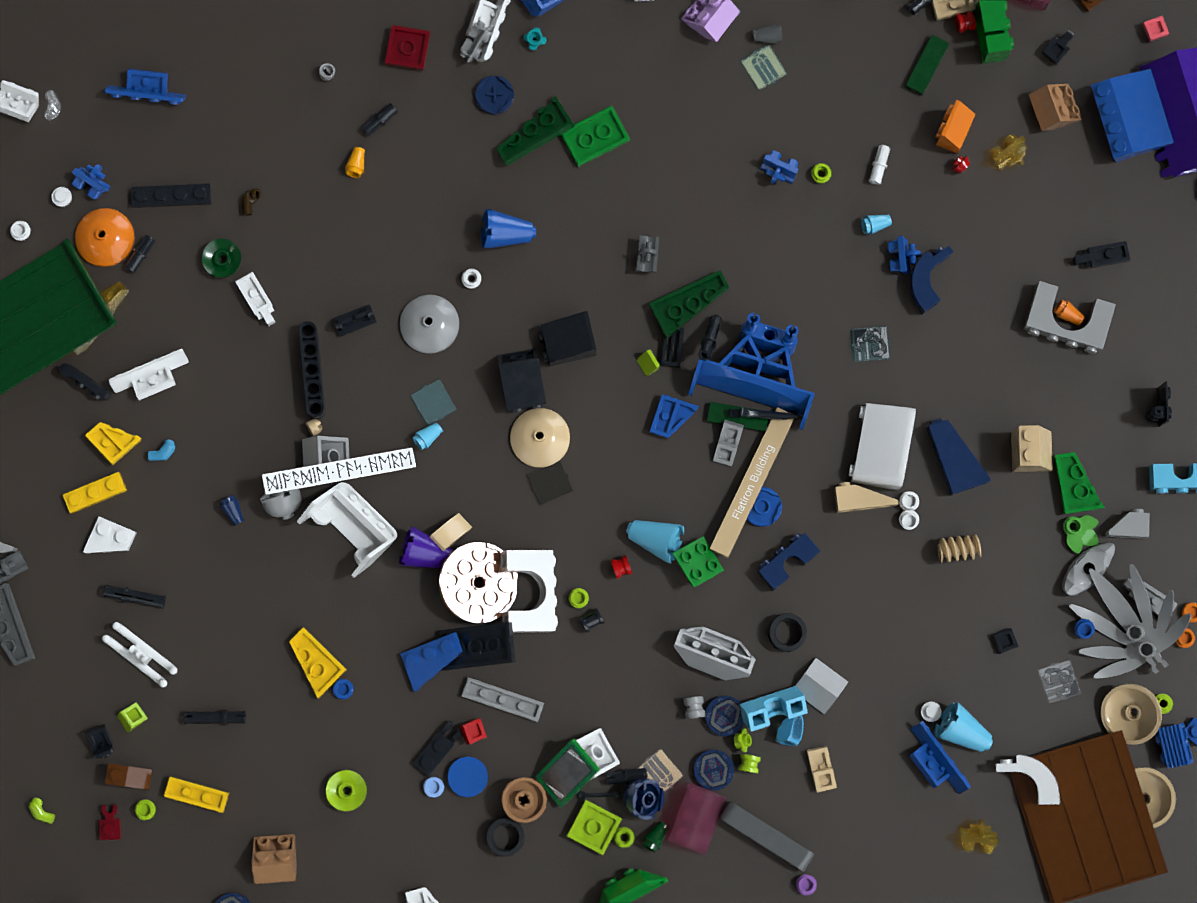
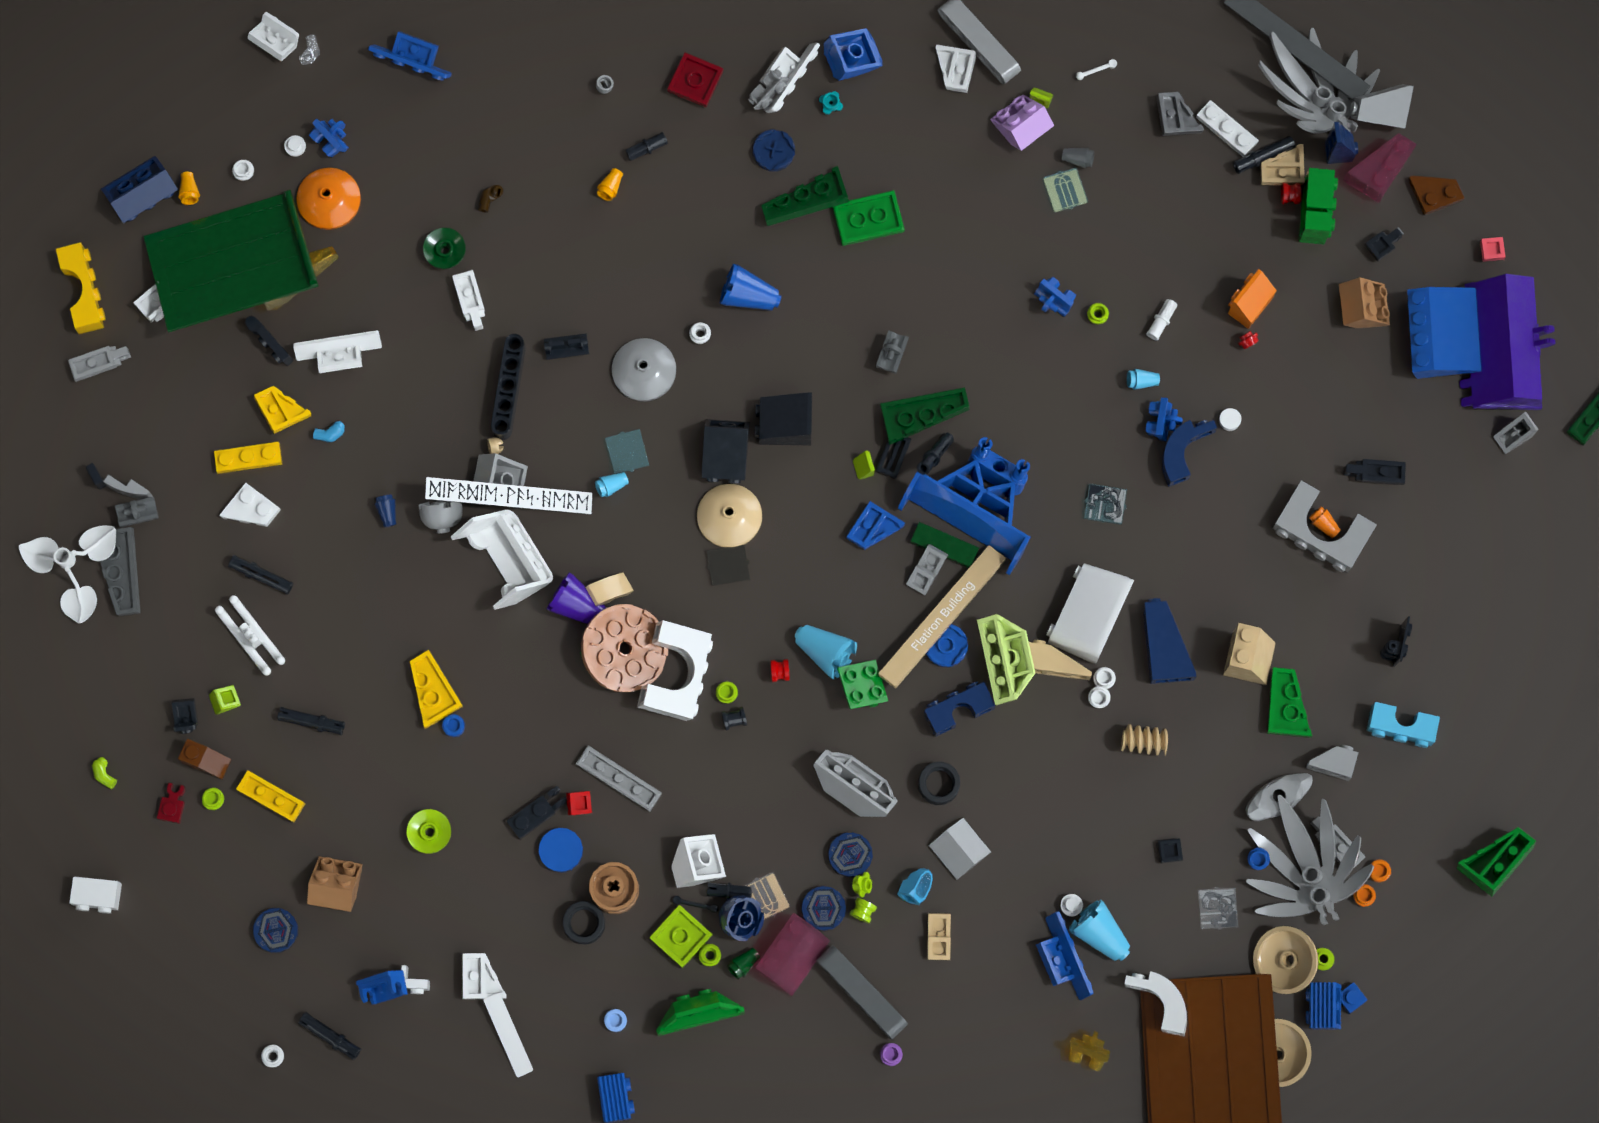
camera: 15 degrees right, 5 degrees down
(140, 253) = (361, 223): black axle -> none
(171, 195) = (409, 172): black plate -> none
(430, 658) = (552, 715): blue wing -> none
(433, 787) = (522, 852): light blue tile -> none
(483, 645) = (605, 714): black tile -> none
(567, 773) = (666, 870): tile -> none
(694, 707) = (819, 837): light grey wheel -> none
(749, 413) = (953, 542): black piece -> none
(785, 702) = (917, 855): medium azure arch -> none
(820, 506) = (1006, 657): none -> yellowish green wedge
(927, 65) = (1239, 228): dark green tile -> none
(961, 240) = (1230, 419): none -> white tile
(1012, 154) = (1304, 342): clear yellow hips -> none
(1082, 534) = (1282, 759): bright green plate -> none

